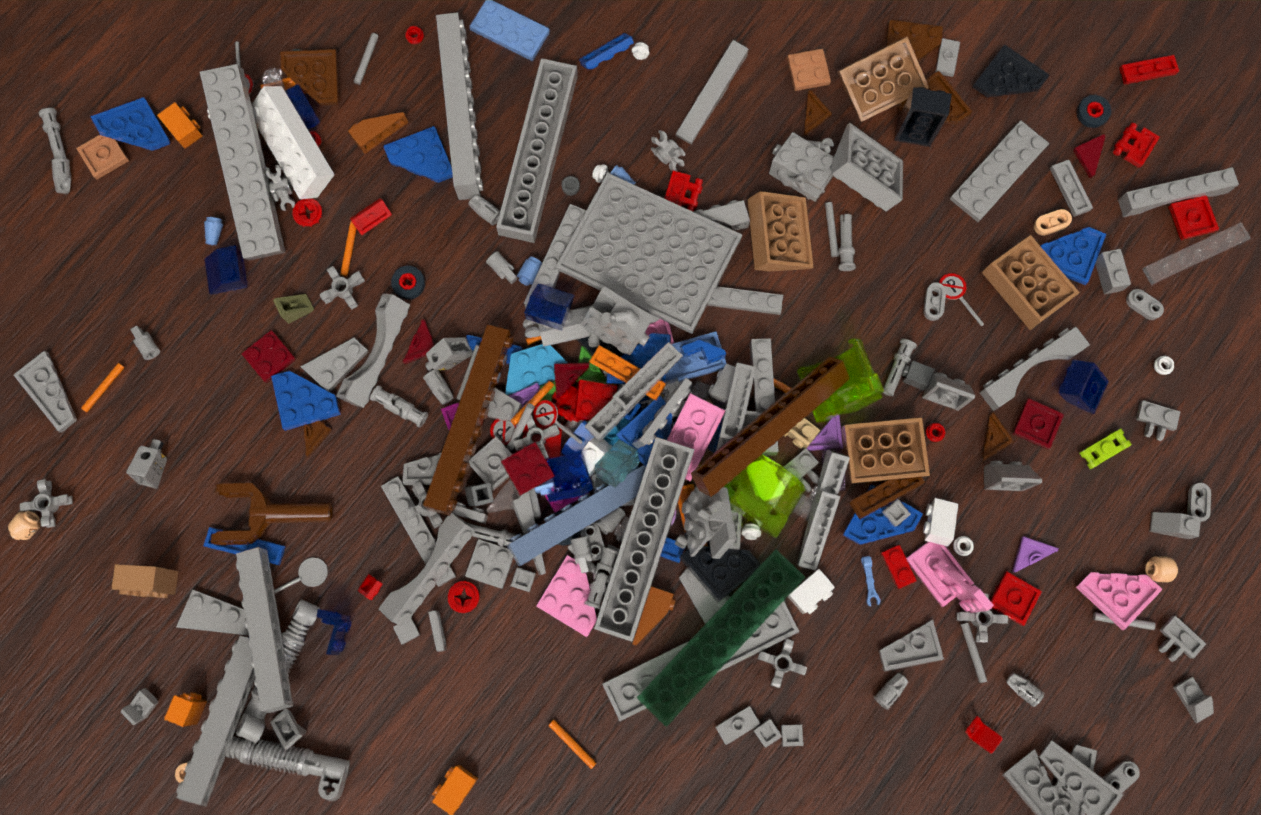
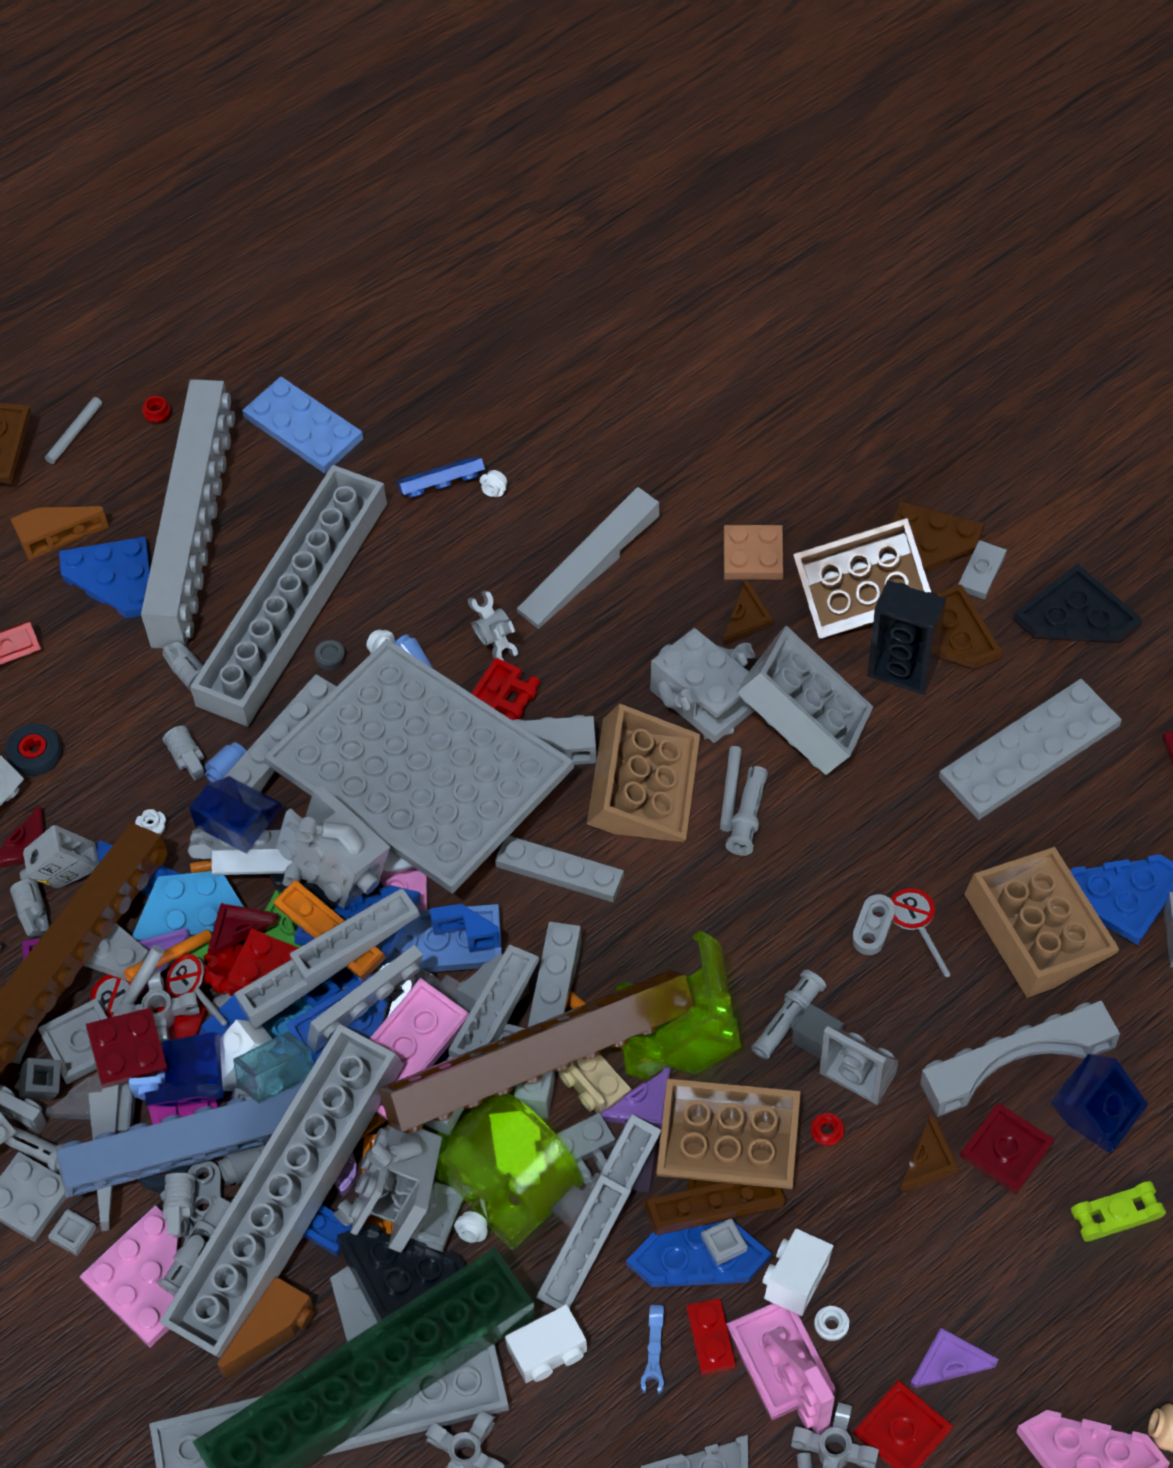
camera: 15 degrees right, 20 degrees down
(494, 322) = (151, 815): none -> white plate
(1009, 477) = (931, 1222): light grey slope -> none
(1051, 222) = (1099, 837): light nougat plate -> none
(1071, 188) = (1144, 792): light grey plate -> none

